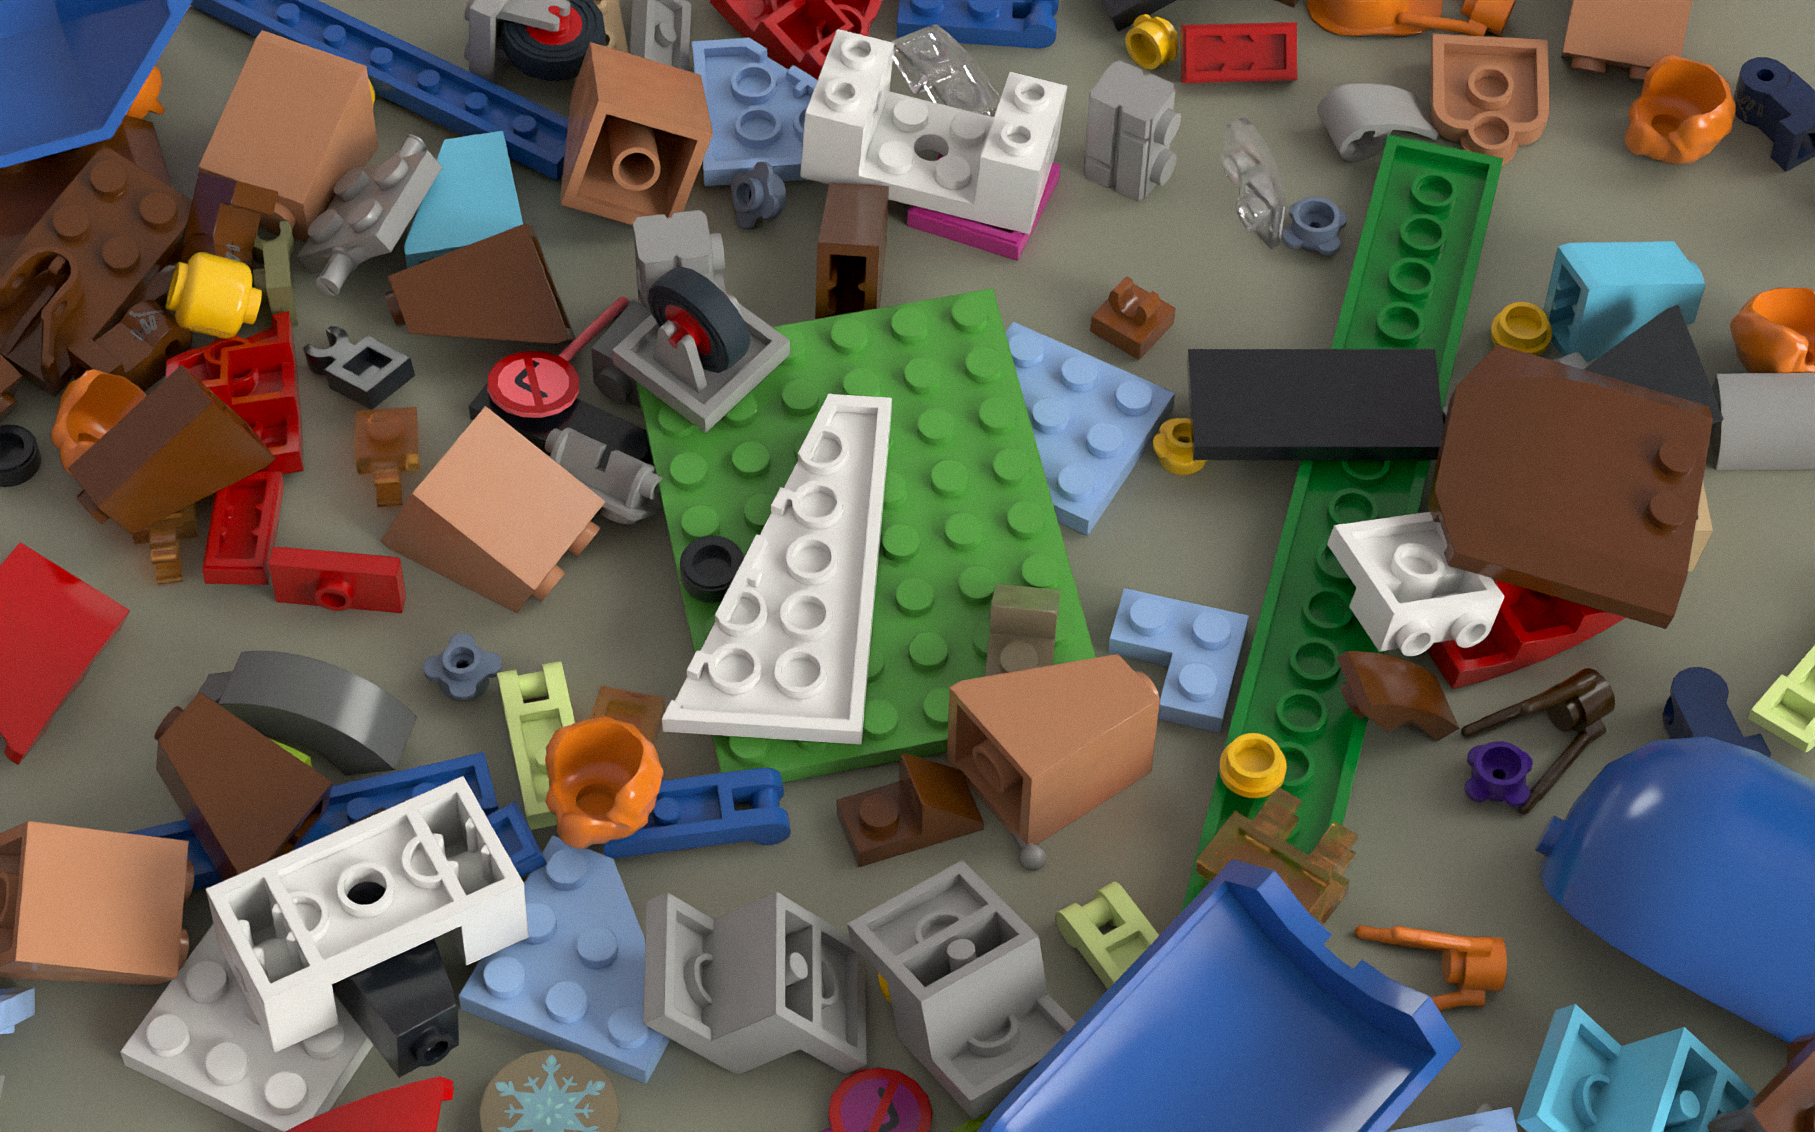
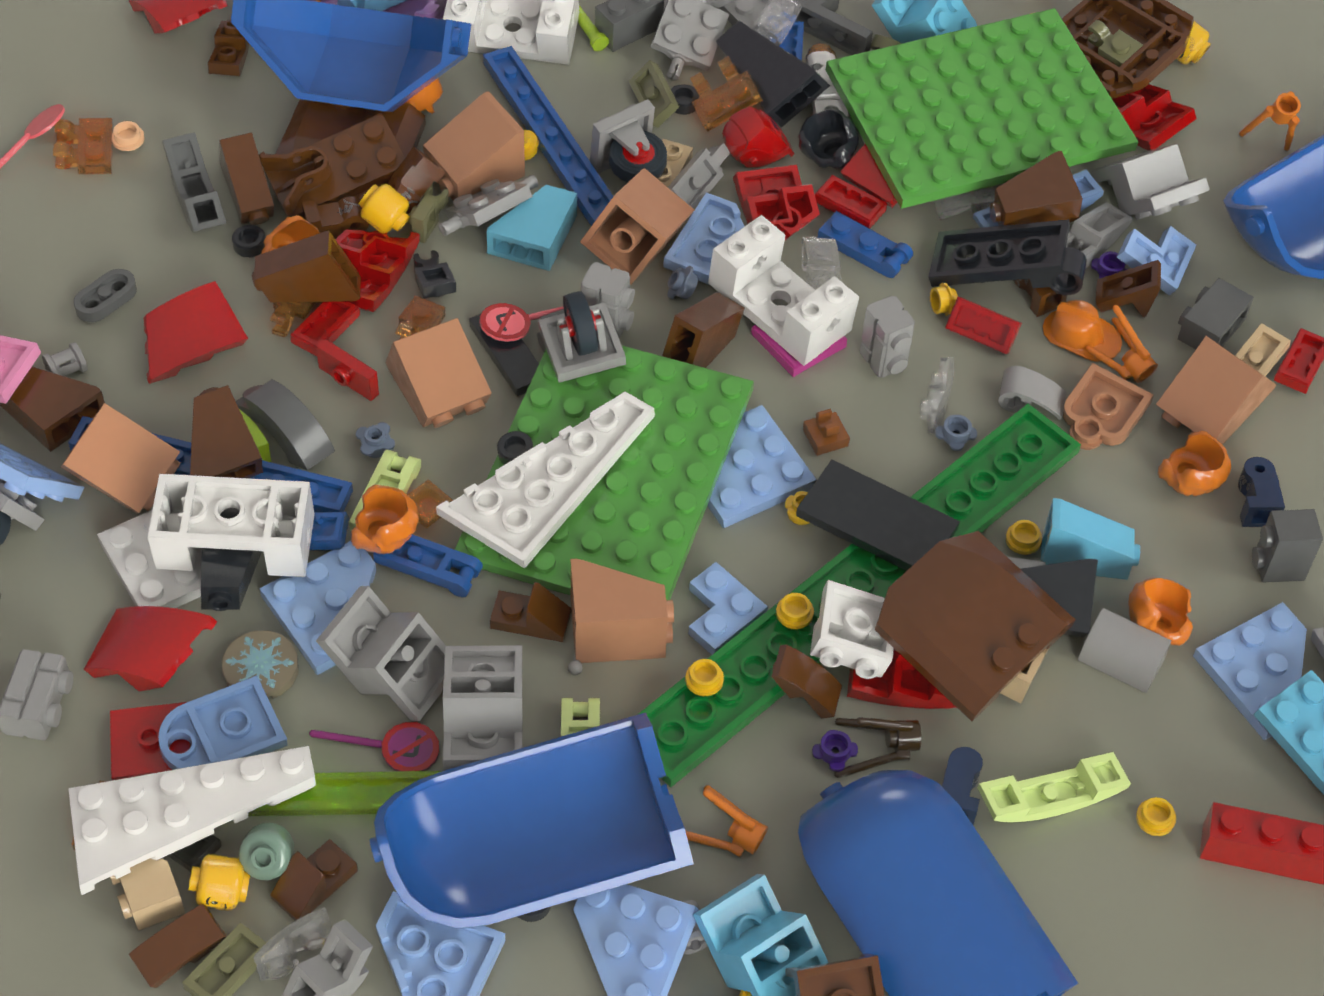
camera: 30 degrees right, 0 degrees up
(483, 292) = (512, 266): reddish brown slope -> none
(623, 484) = (506, 391): light grey hinge -> none
(1022, 628) = (639, 551): dark tan slope -> none
(1261, 842) = (676, 742): clear orange plate -> none
(1305, 599) = (795, 611): none -> yellow plate

